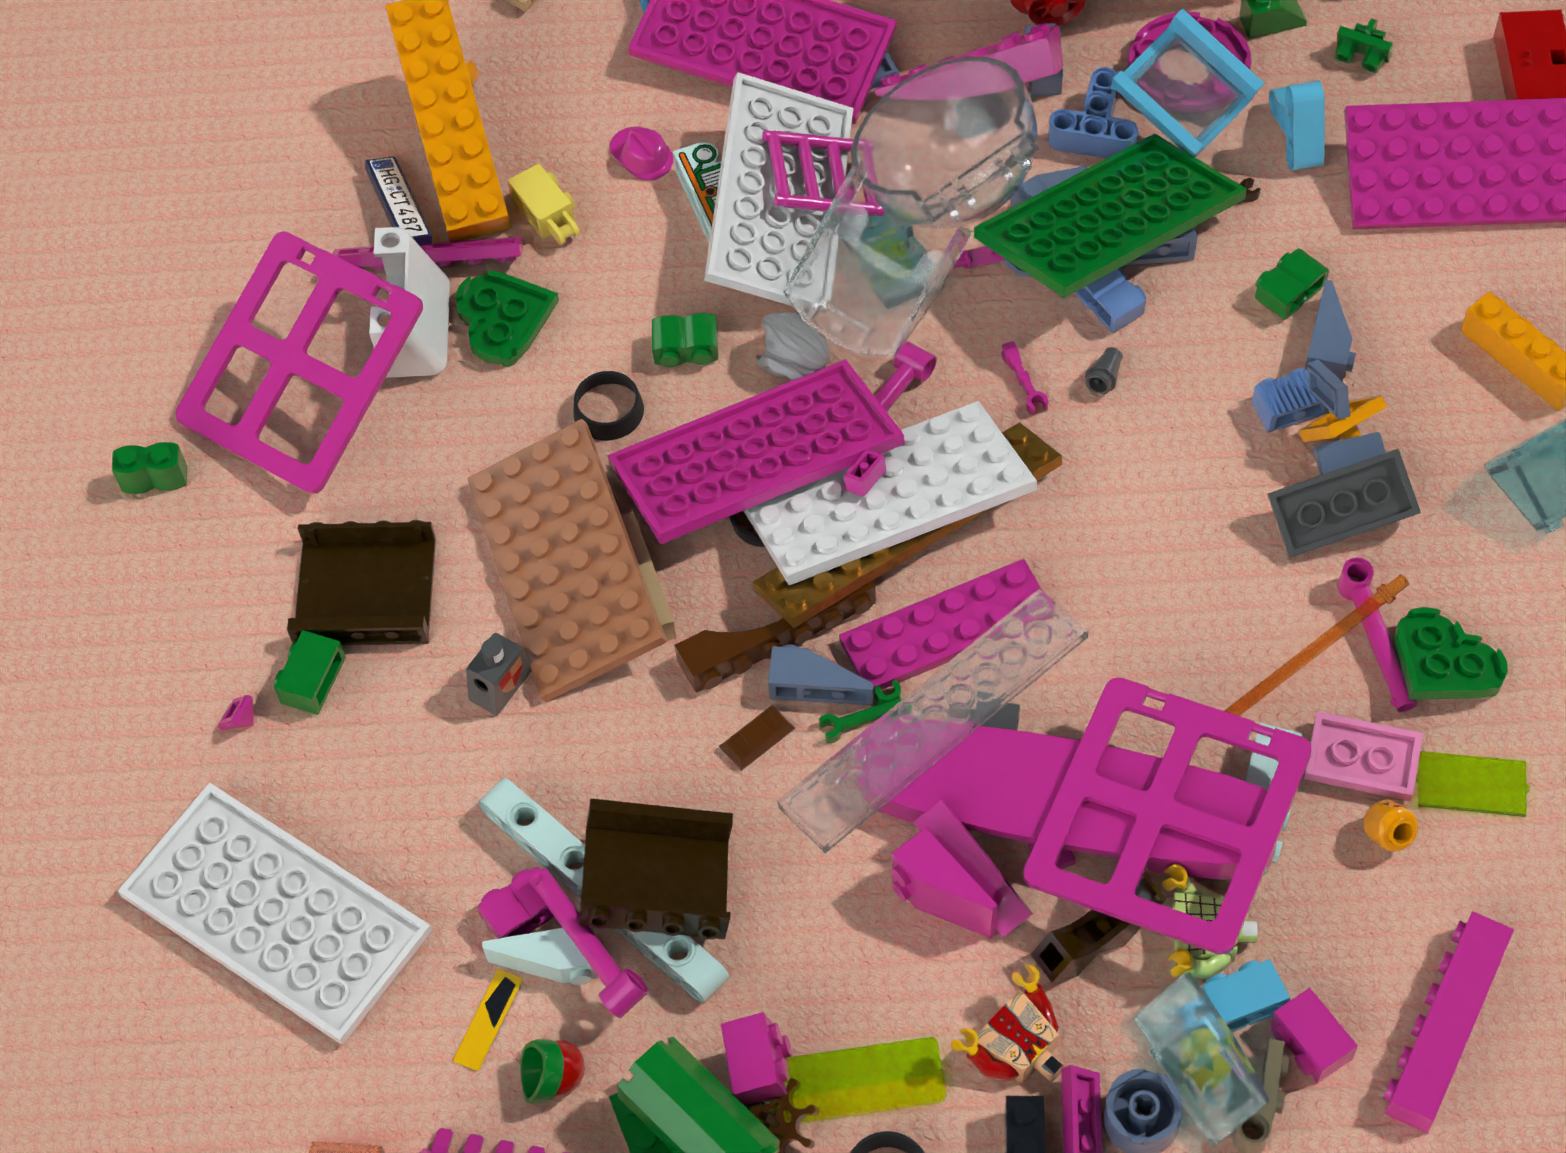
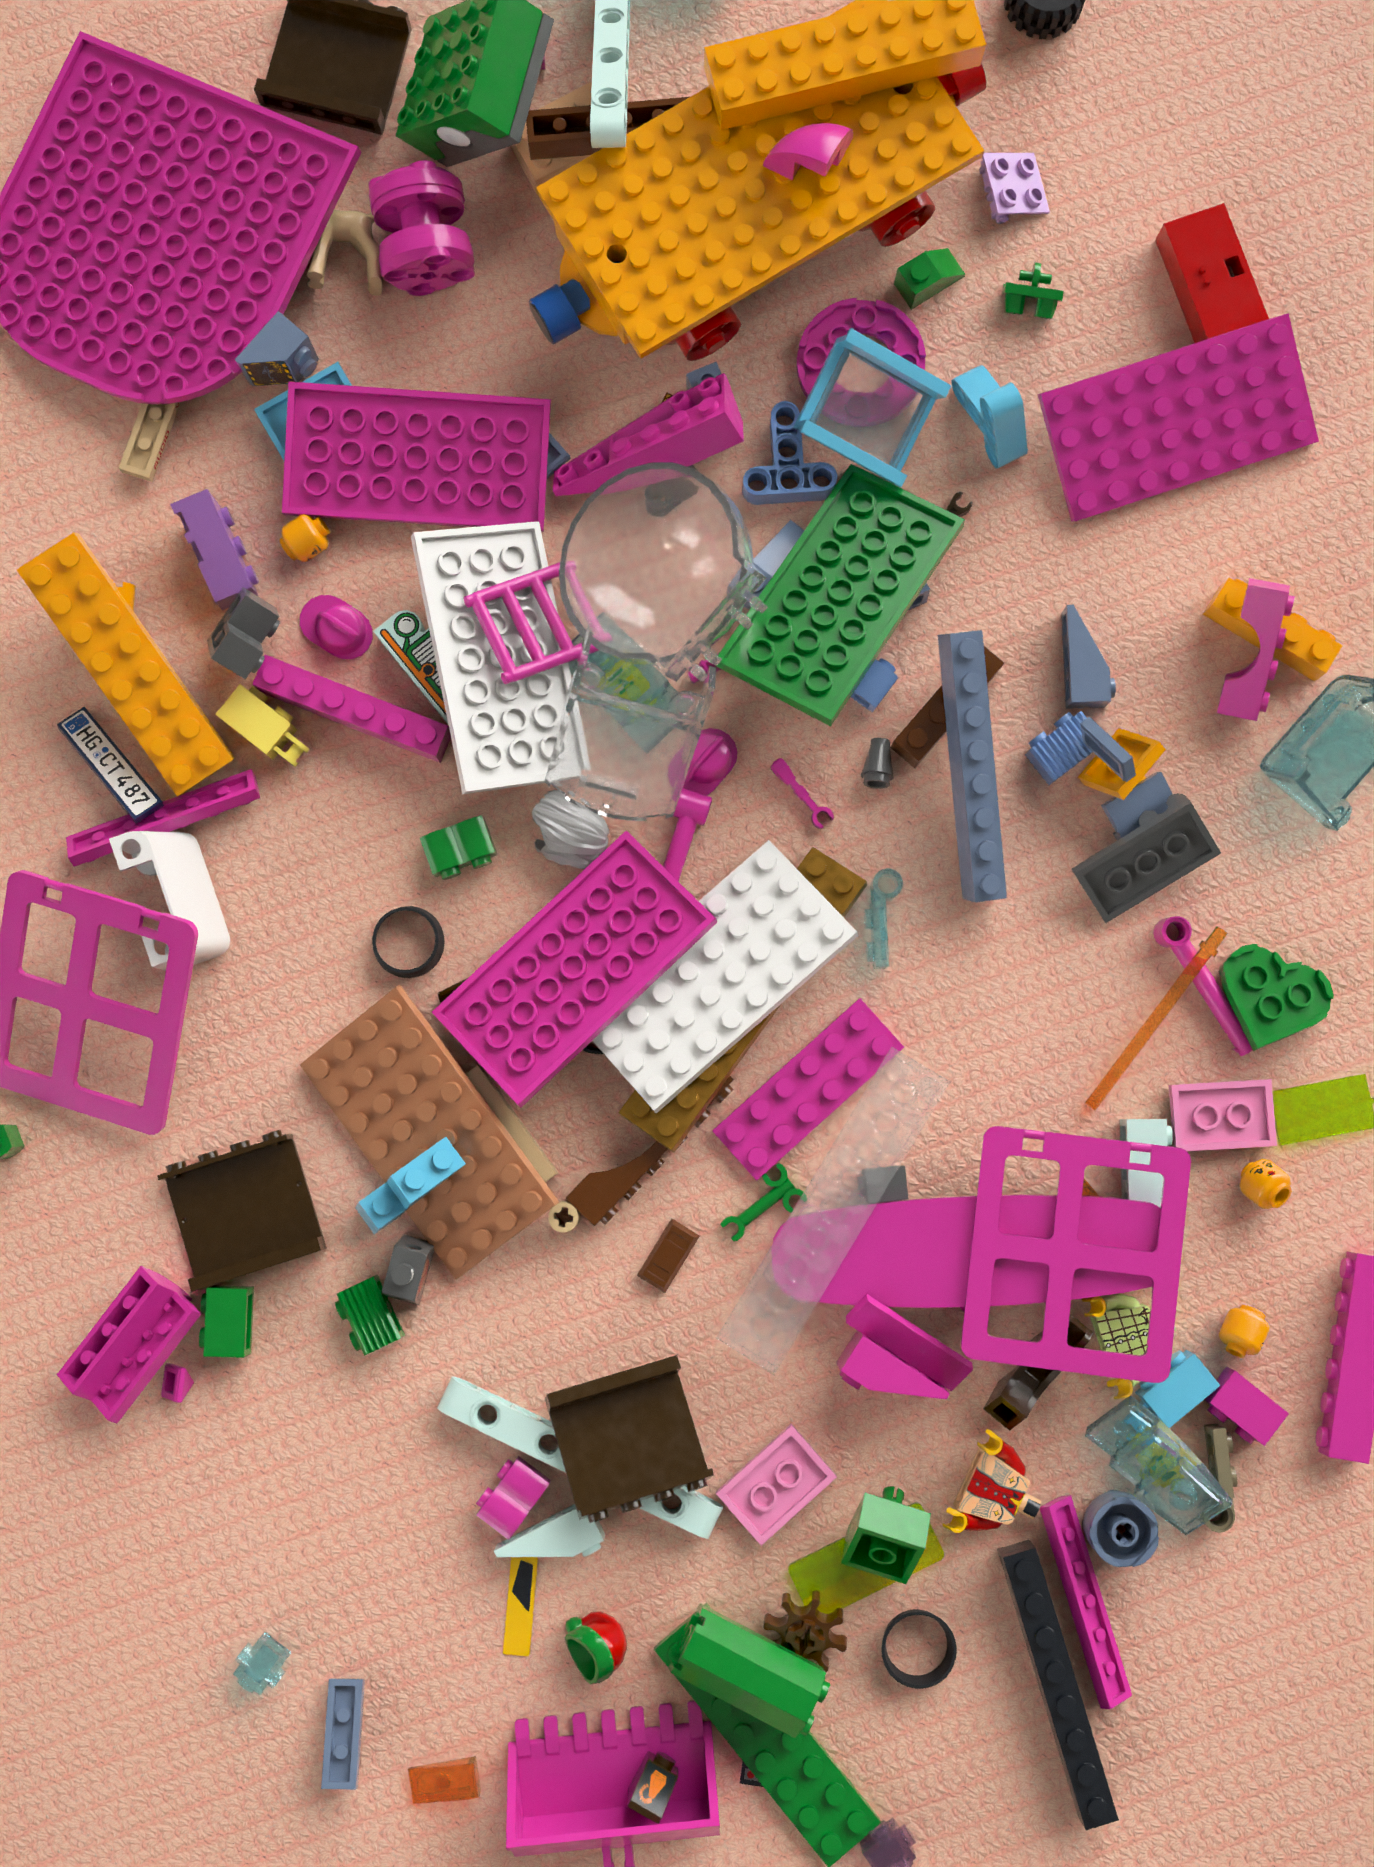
camera: 20 degrees left, 25 degrees up
(208, 990) = (261, 1664): none -> clear light blue brick
(209, 659) = (129, 1343): none -> dark pink brick
(261, 1080) = (343, 1734): none -> sand blue hinge
(276, 912) = (289, 1568): white plate -> none
(446, 703) = (369, 1315): none -> green brick
(503, 315) = (267, 866): green plate -> none
(530, 586) = (409, 1185): none -> medium azure arch
(558, 123) = (240, 633): none -> dark grey brick
(559, 62) = (216, 547): none -> medium lavender wedge
(622, 988) = (636, 1564): dark pink piece -> none
(632, 210) = (352, 708): none -> dark pink brick
(640, 76) = (304, 537): none -> light orange head
(667, 668) = (556, 1222): none -> tan bush
(756, 1058) = (775, 1594): dark pink brick -> none
(792, 971) = (776, 1484): none -> bright pink plate
(806, 676) = (696, 1185): sand blue slope -> none
(865, 472) = (691, 971): dark pink piece -> none
(886, 1038) = (886, 1536): none -> green brick
(943, 330) = (711, 761): none -> dark pink piece
(1062, 492) = (876, 919): none -> clear light blue plate
(1185, 337) = (930, 722): none -> reddish brown brick
(1192, 379) = (972, 766): none -> sand blue brick
(1290, 283) = (1031, 611): green brick -> none
(1331, 961) = (1244, 1331): none -> light orange head
(1484, 388) = (1264, 610): none -> dark pink arch

